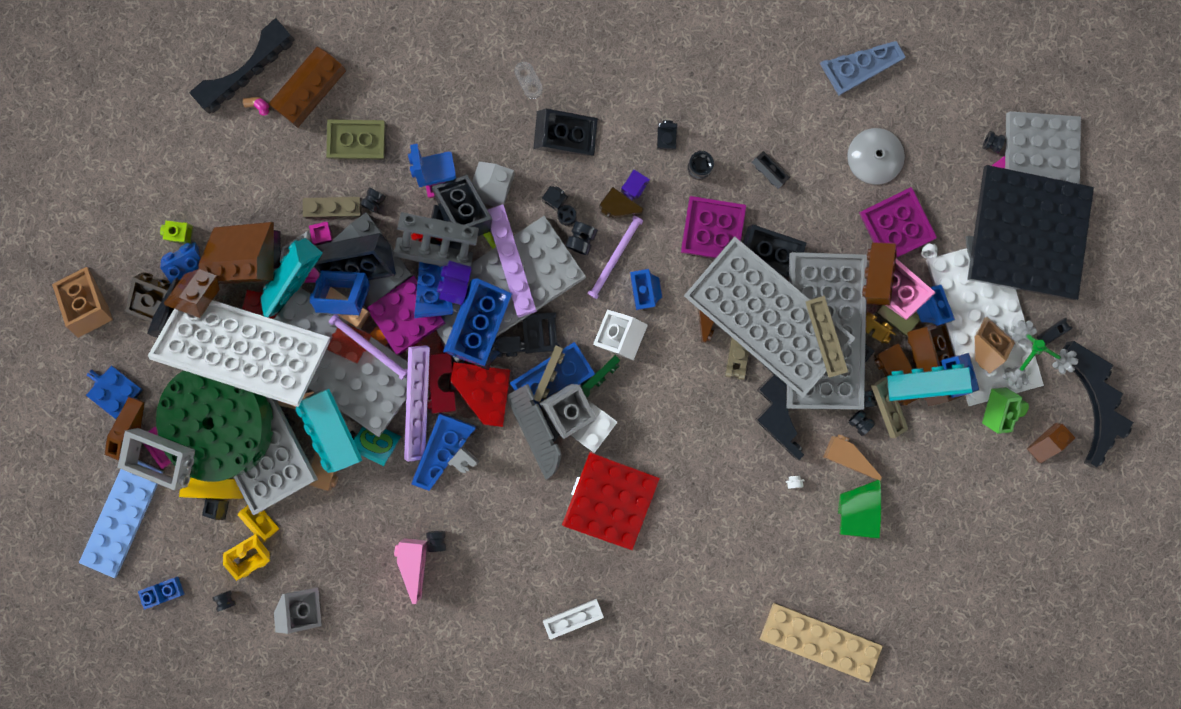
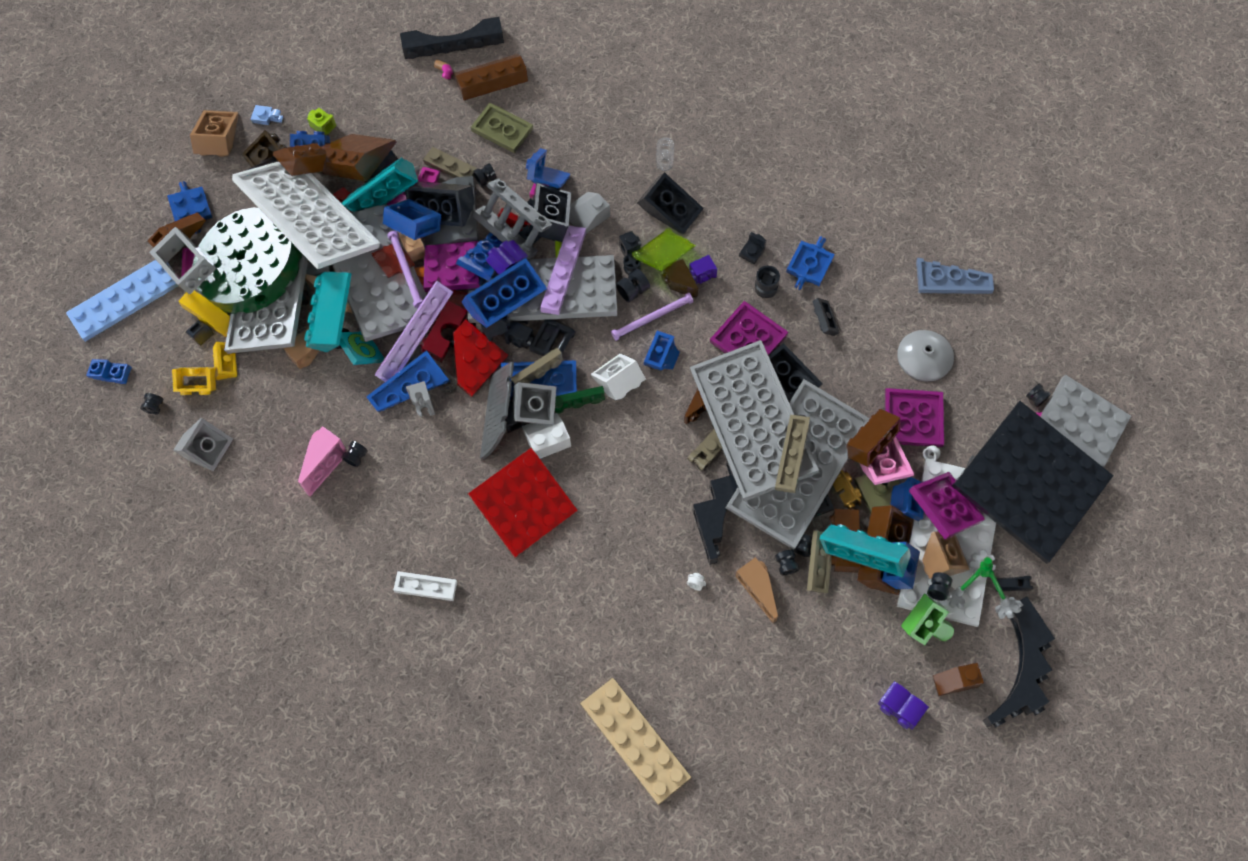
camera: 35 degrees right, 20 degrees down
(115, 255) = (265, 114): none -> light blue plate
(588, 186) = (663, 250): none -> clear neon green piece
(727, 121) = (810, 263): none -> blue plate
(861, 511) = (741, 639): green slope -> none
(972, 301) = (946, 506): none -> magenta plate
(1003, 378) = (940, 584): none -> black wheel
(1017, 490) = (902, 705): none -> dark purple brick

